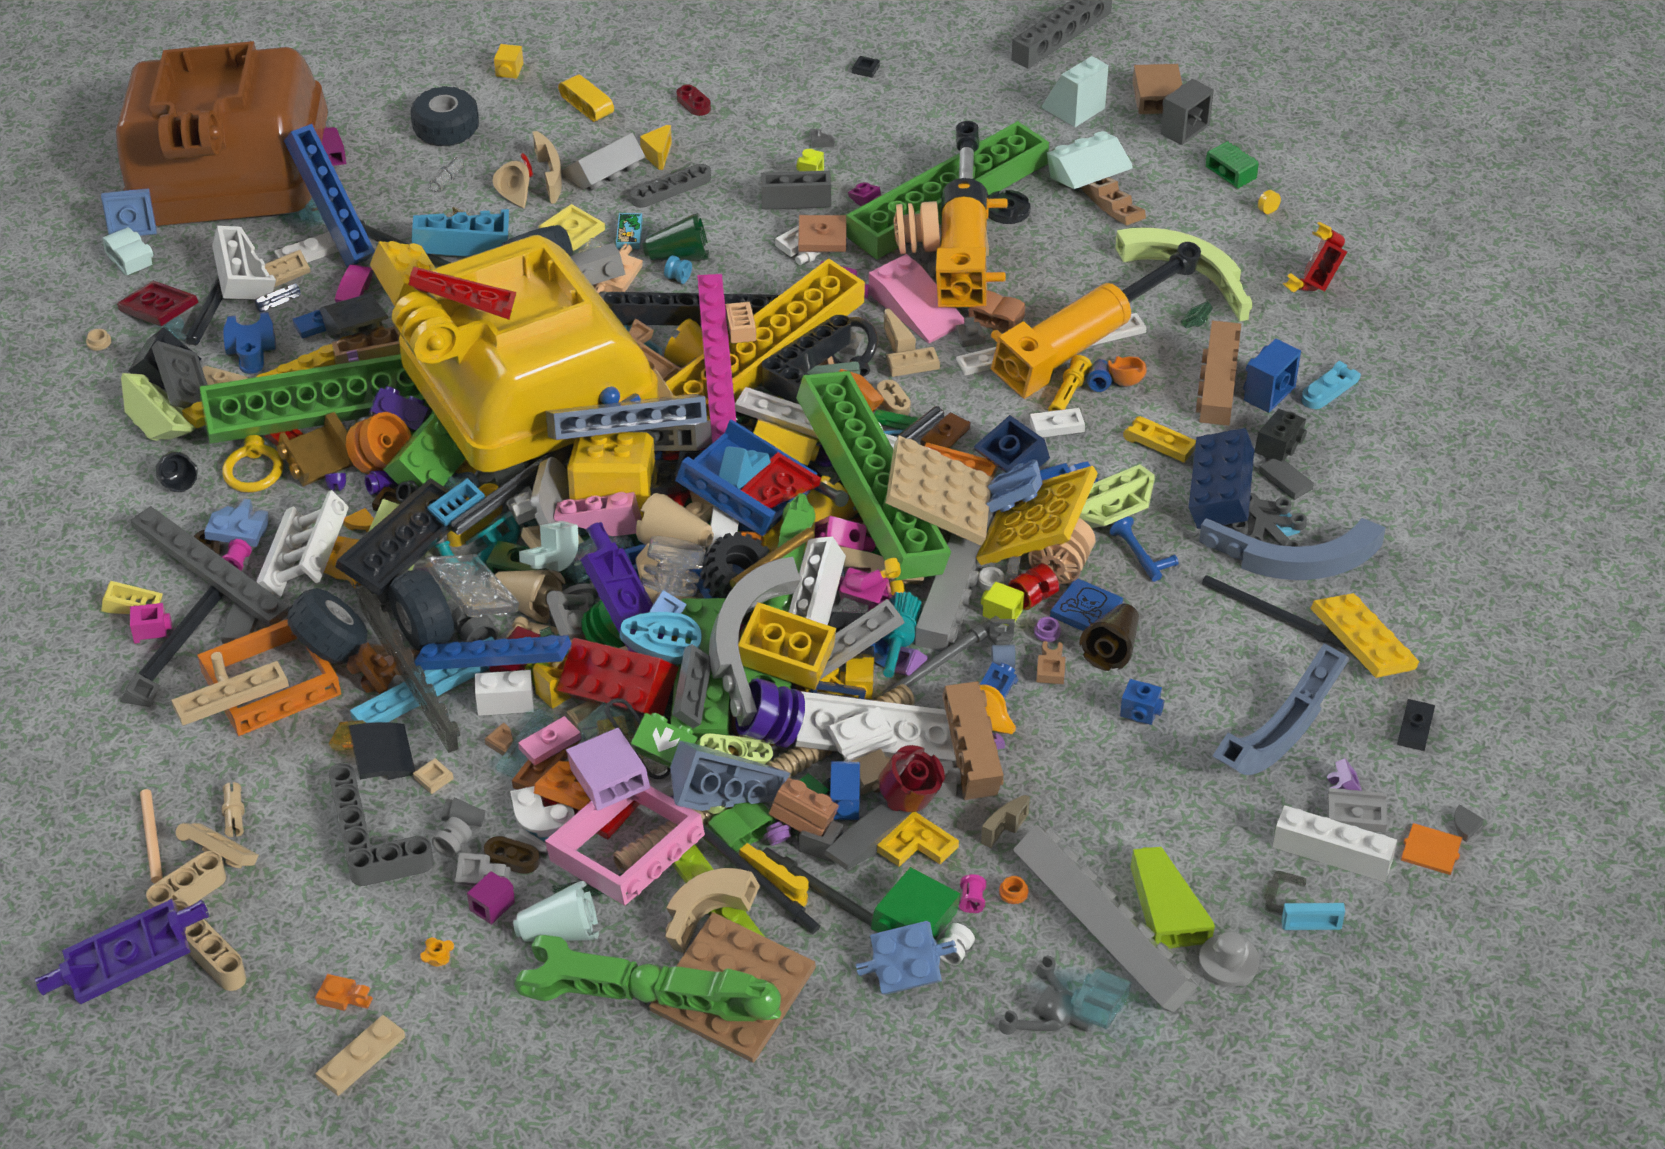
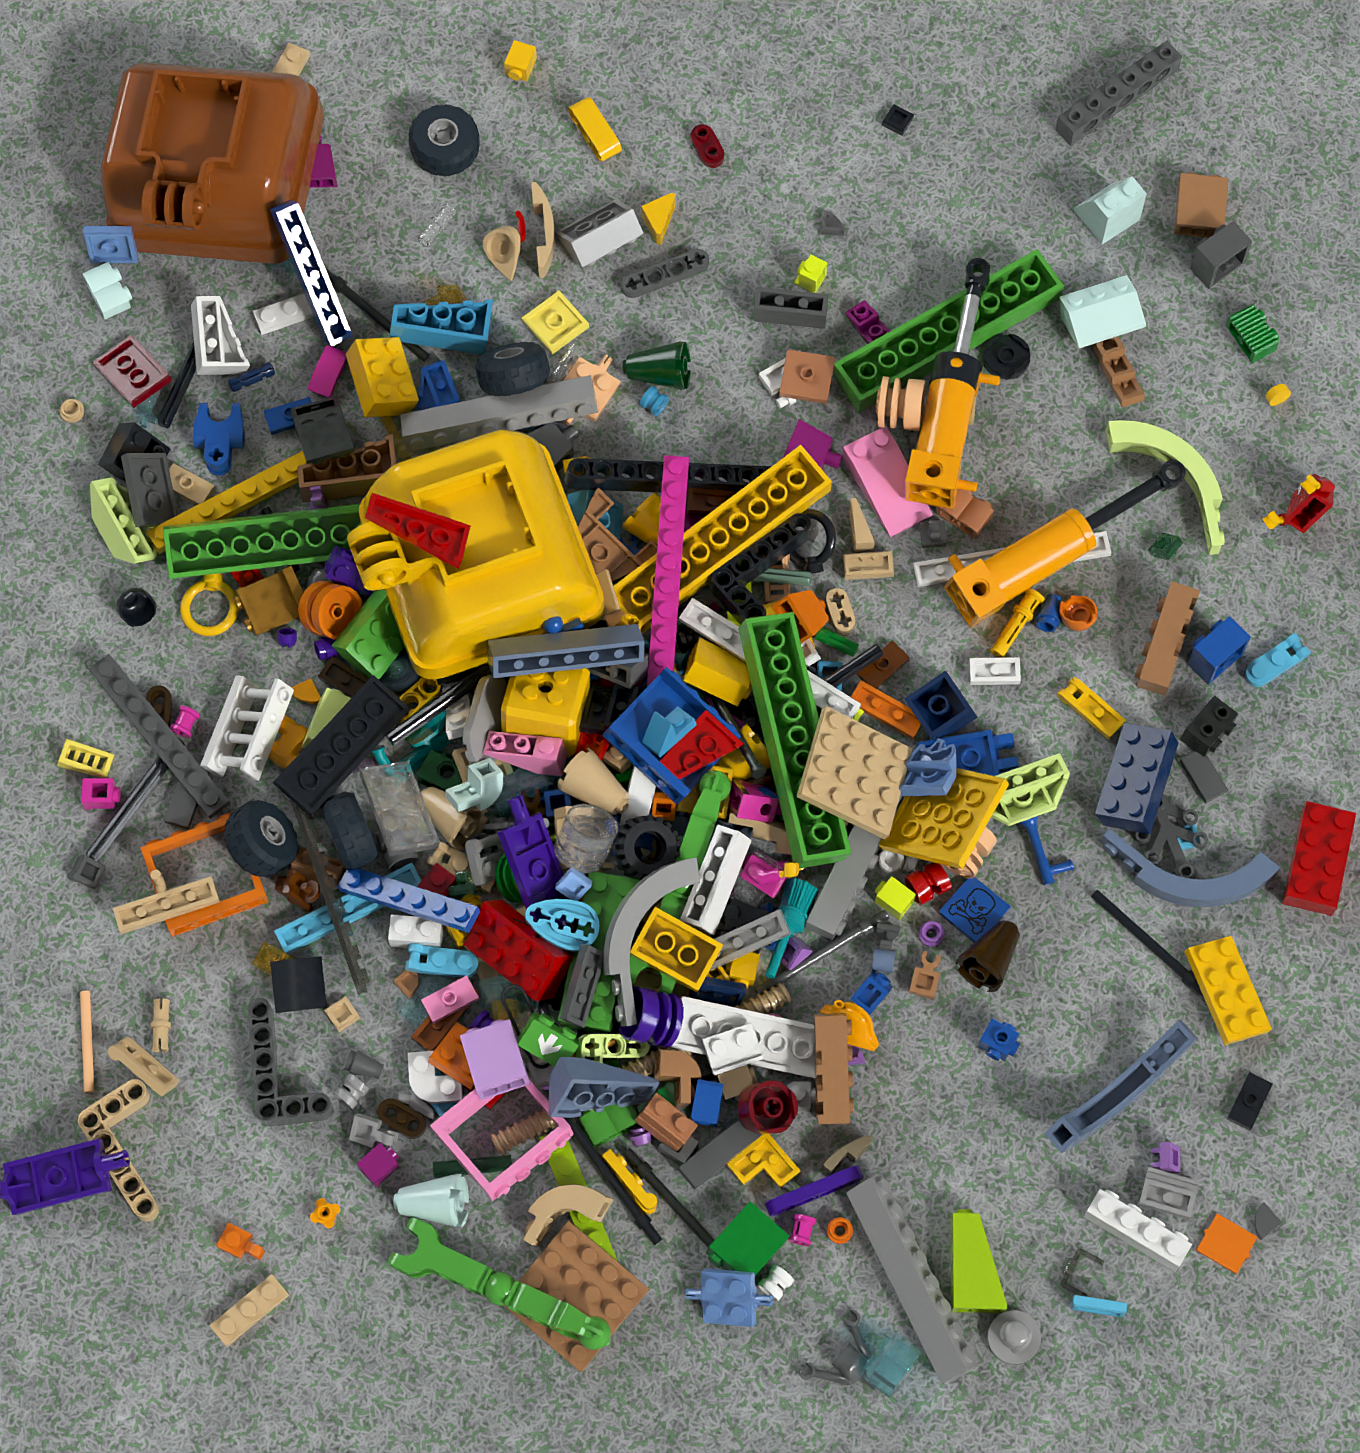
camera: 10 degrees right, 25 degrees up
(237, 524) = (190, 682): medium blue plate -> none
(288, 267) = (262, 340): tan plate -> none
(405, 489) = (352, 675): black plate -> none
(457, 493) = (388, 704): dark azure slope -> none
(533, 712) = (442, 961): none -> medium azure plate
(629, 230) = (613, 333): tile -> none
(740, 326) = (698, 538): light nougat slope -> none
(778, 553) = (678, 848): pearl gold bar -> none
(807, 761) = (678, 1068): none -> medium nougat brick
(977, 856) = (814, 1190): none -> dark purple beam
(1421, 521) = (1319, 858): none -> red brick

